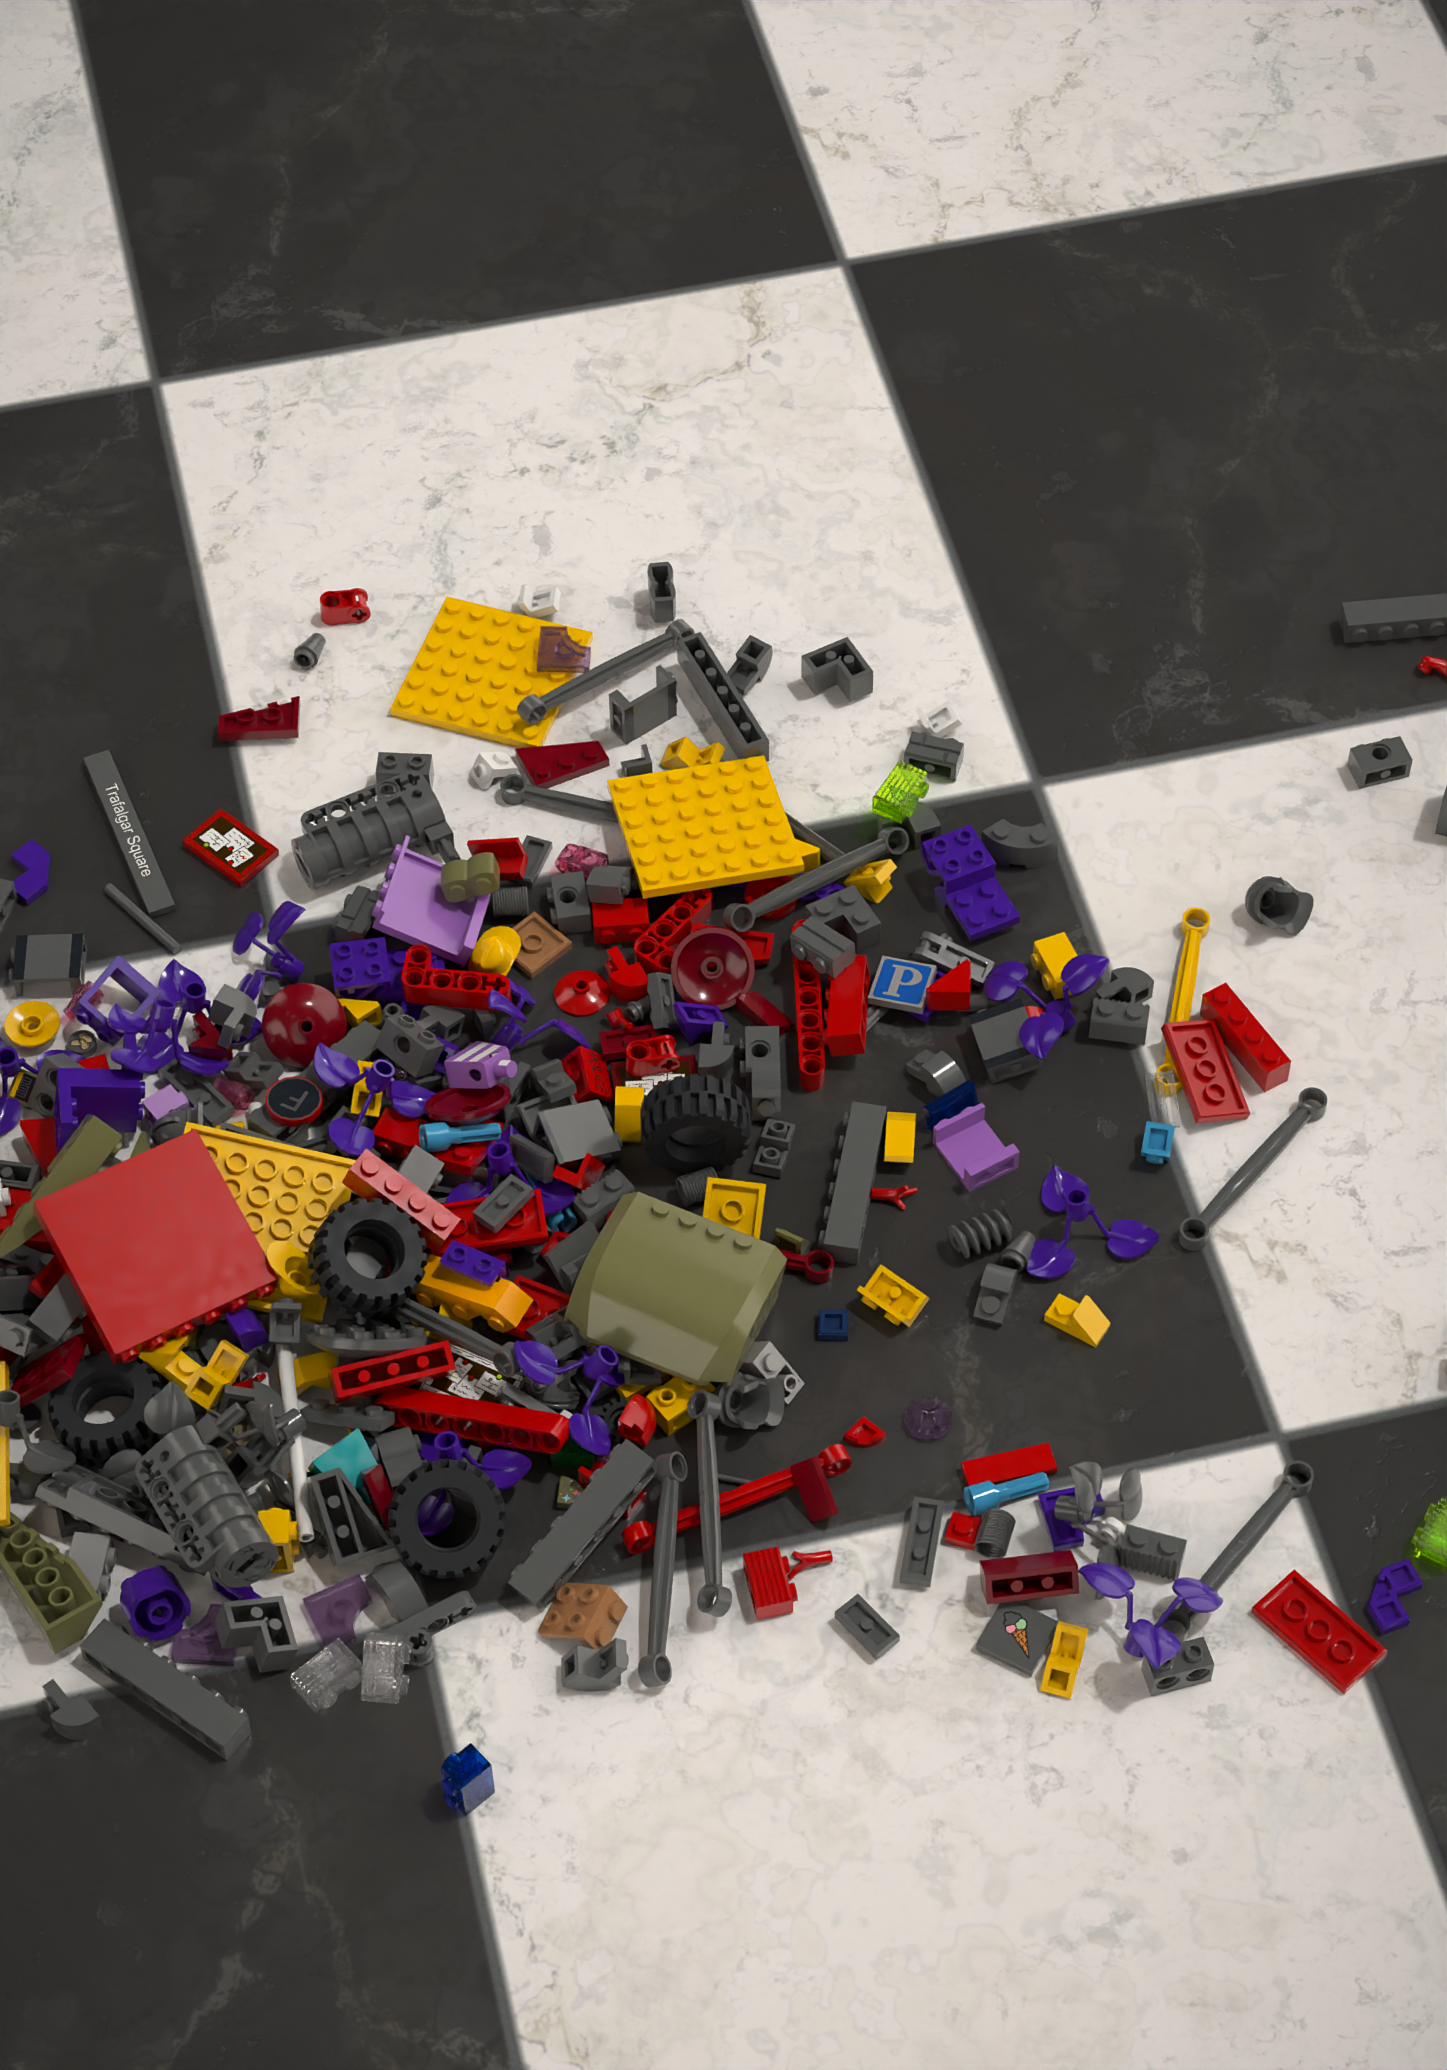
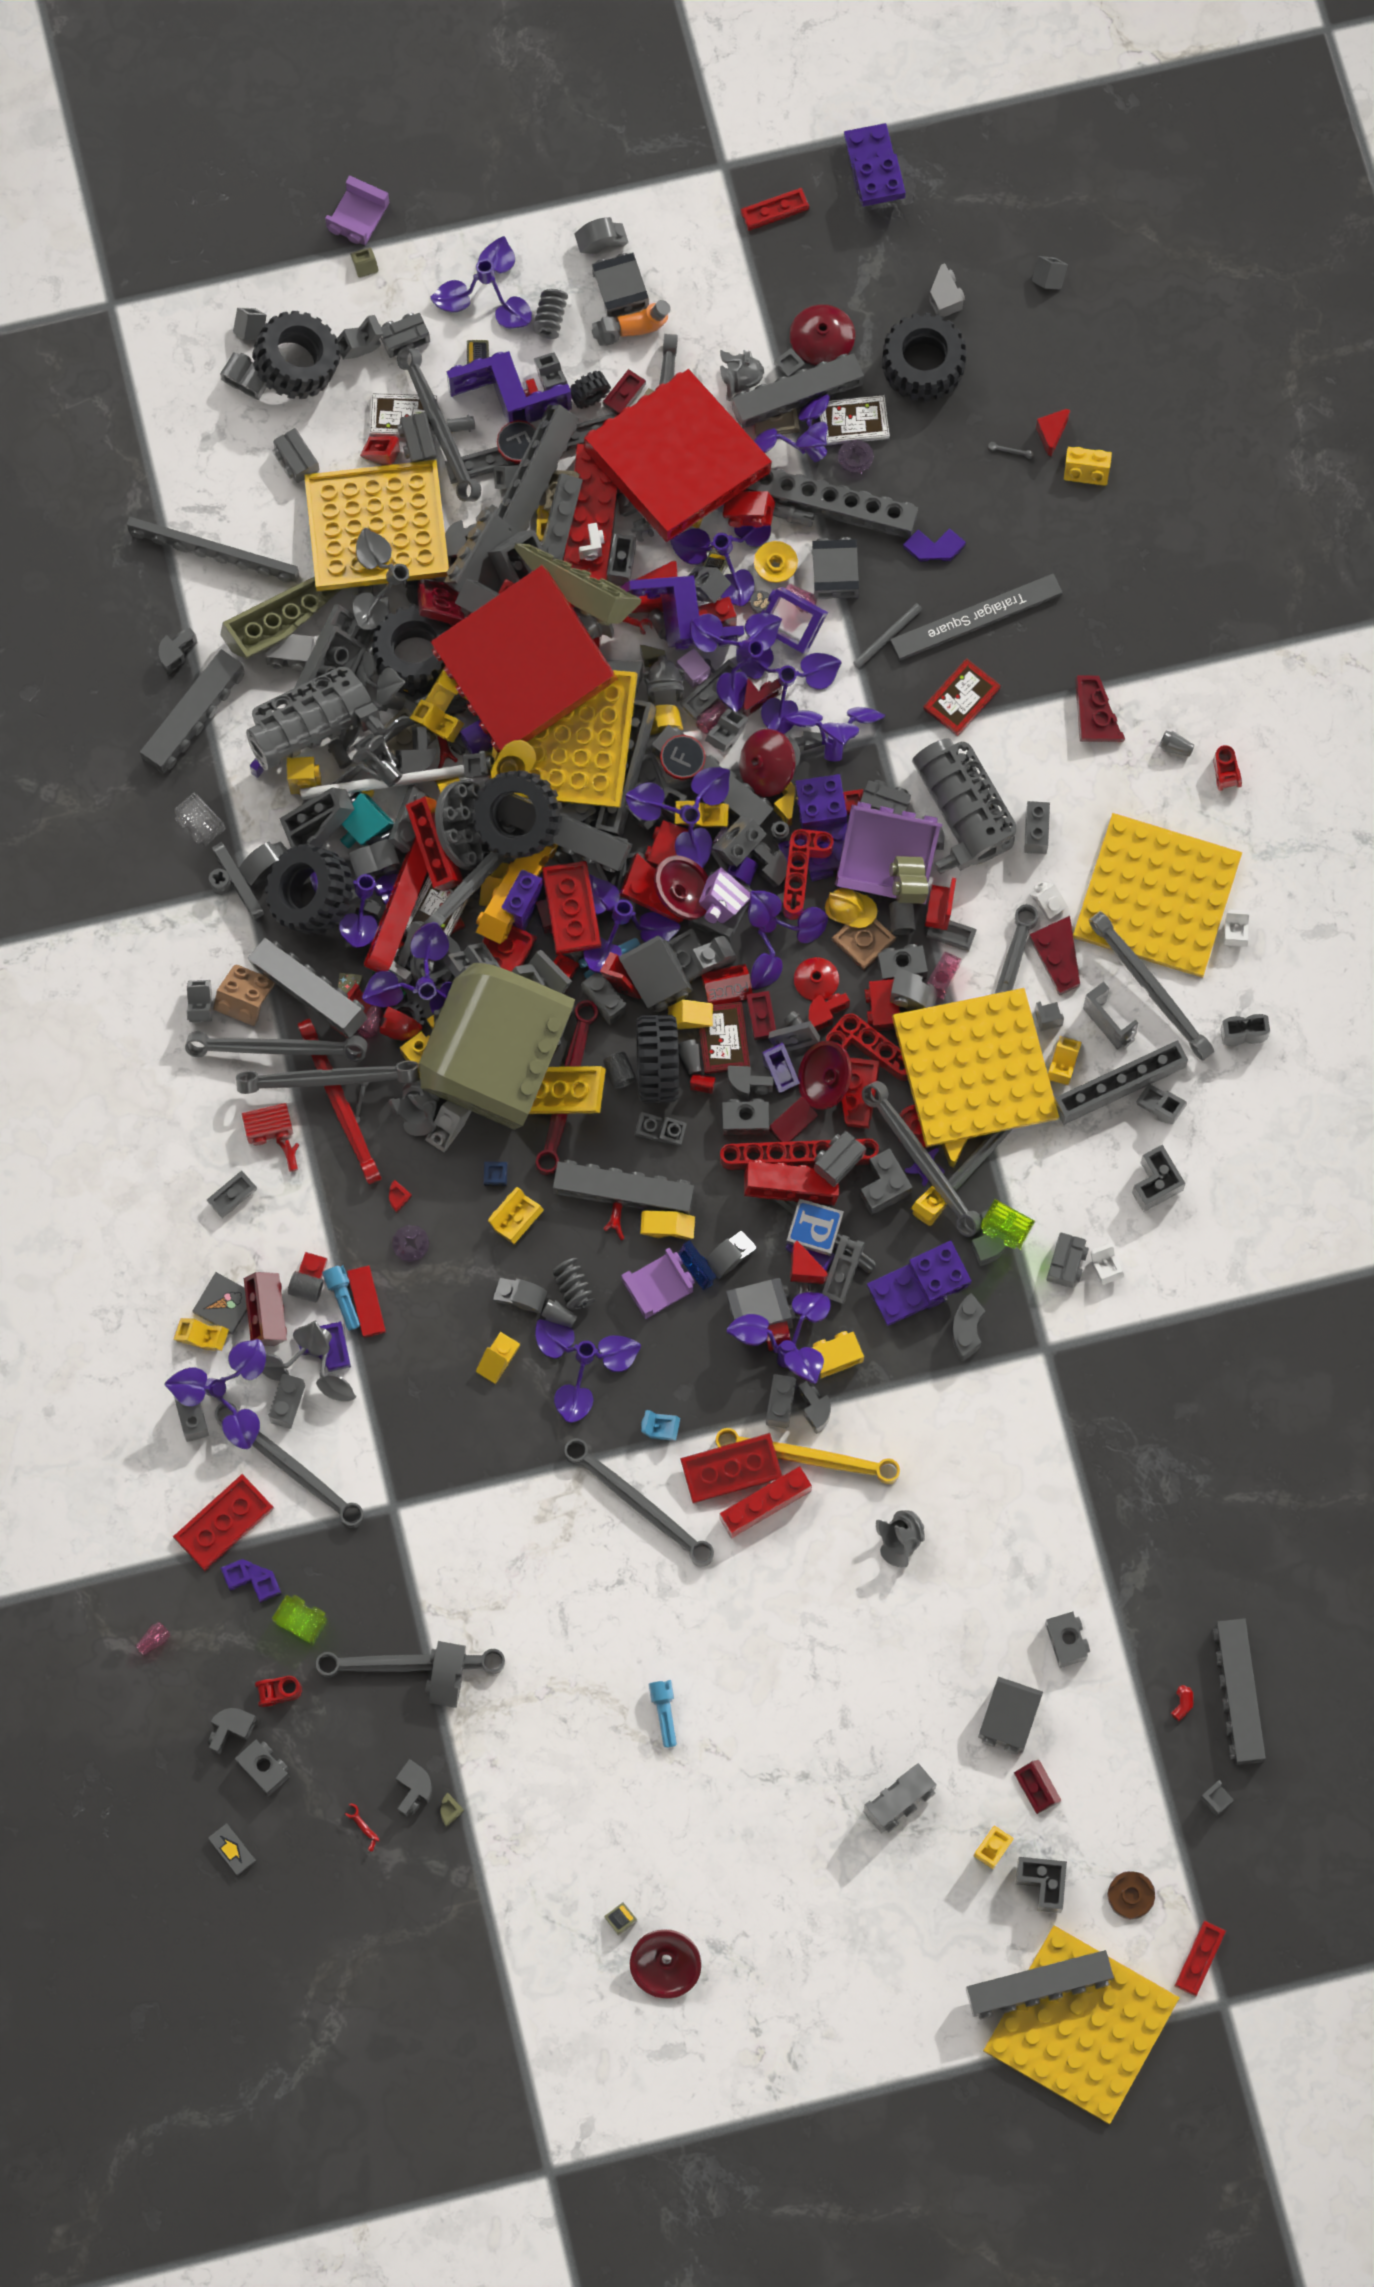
camera: 90 degrees right, 20 degrees up
(154, 1603) = (250, 692): dark purple brick -> none
(201, 1643) = (232, 739): clear purple tile -> none
(234, 1012) = (776, 711): dark grey brick -> none
(263, 1626) = (236, 769): dark grey brick -> none
(337, 1608) = (254, 824): clear purple tile -> none
(375, 1179) = (570, 836): brick -> none
(378, 1492) = (343, 842): dark red slope -> none
(384, 1667) = (198, 855): clear brick -> none
(440, 1136) = (645, 866): dark azure piece -> none
(467, 1779) = (109, 915): clear blue brick -> none
(503, 1203) = (580, 915): dark grey plate -> none
(532, 1158) = (634, 938): dark grey tile -> none
(560, 653) = (1171, 945): tile -> none
(617, 1018) = (786, 1007): red hand -> none
(651, 1056) = (740, 1034): red piece -> none
(766, 1089) = (708, 1117): dark grey brick -> none
(790, 1242) = (571, 1141): olive slope -> none
(814, 1489) = (342, 1155): dark red slope -> none
(922, 1541) = (301, 1234): dark grey plate -> none
(1112, 1530) = (306, 1372): white plate -> none
(1159, 1076) = (683, 1435): clear tile -> none

